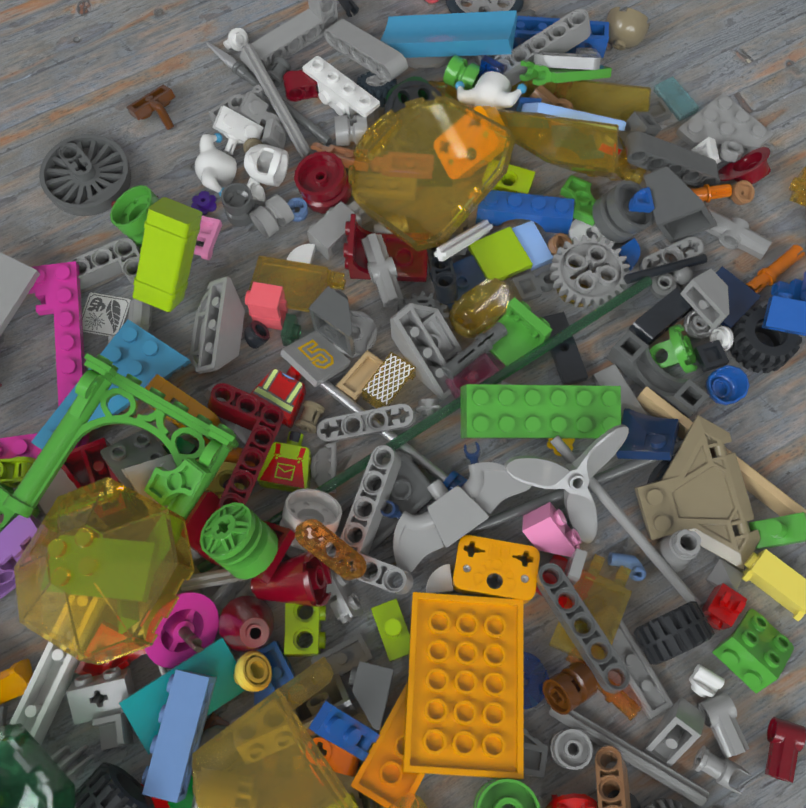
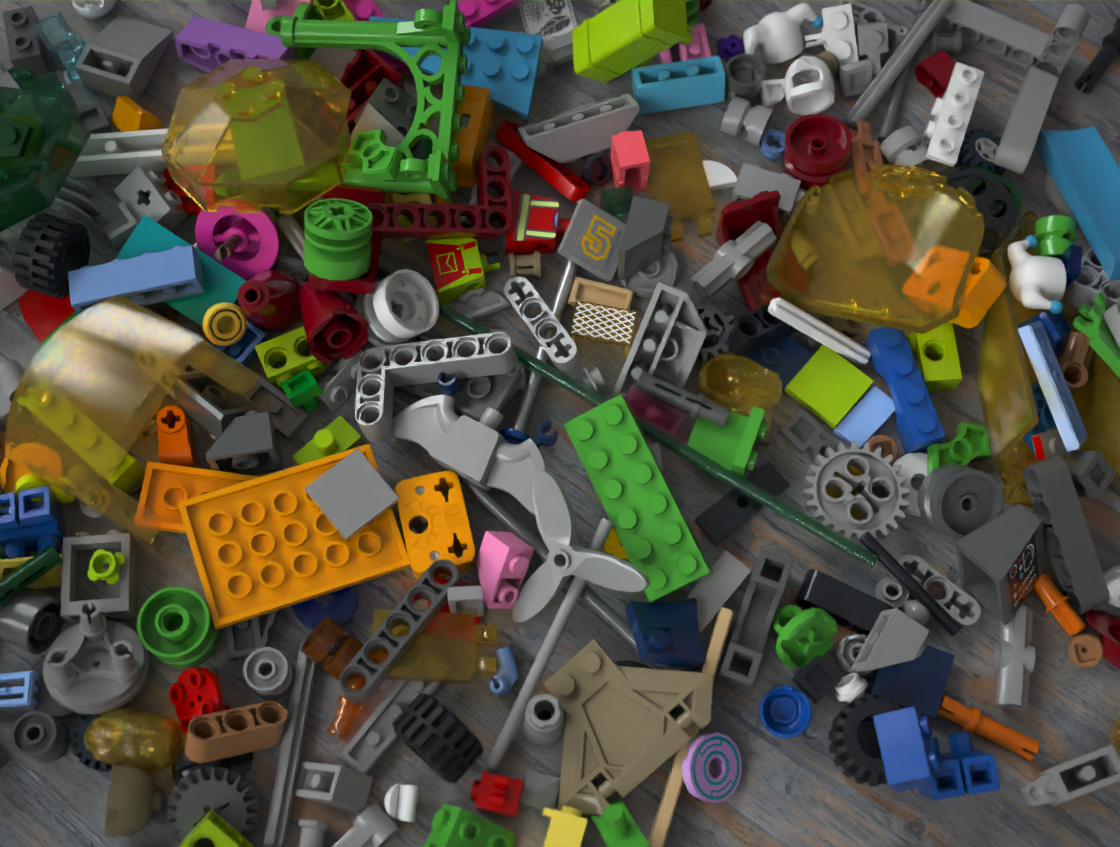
camera: 65 degrees right, 0 degrees up
(219, 245) = (678, 84): none -> medium azure brick
(243, 363) = (552, 171): none -> red beam
(318, 549) = (373, 357): clear orange beam -> none
(339, 629) = (302, 390): none -> green tile
(343, 730) = (192, 424): blue plate -> none
(440, 581) = (397, 471): white tile -> none
(455, 621) = (351, 494): none -> light grey tile
(632, 252) = (916, 538): blue tile -> none
(642, 201) = (978, 511): blue tile -> none
(752, 449) = (727, 770): none -> lavender tile

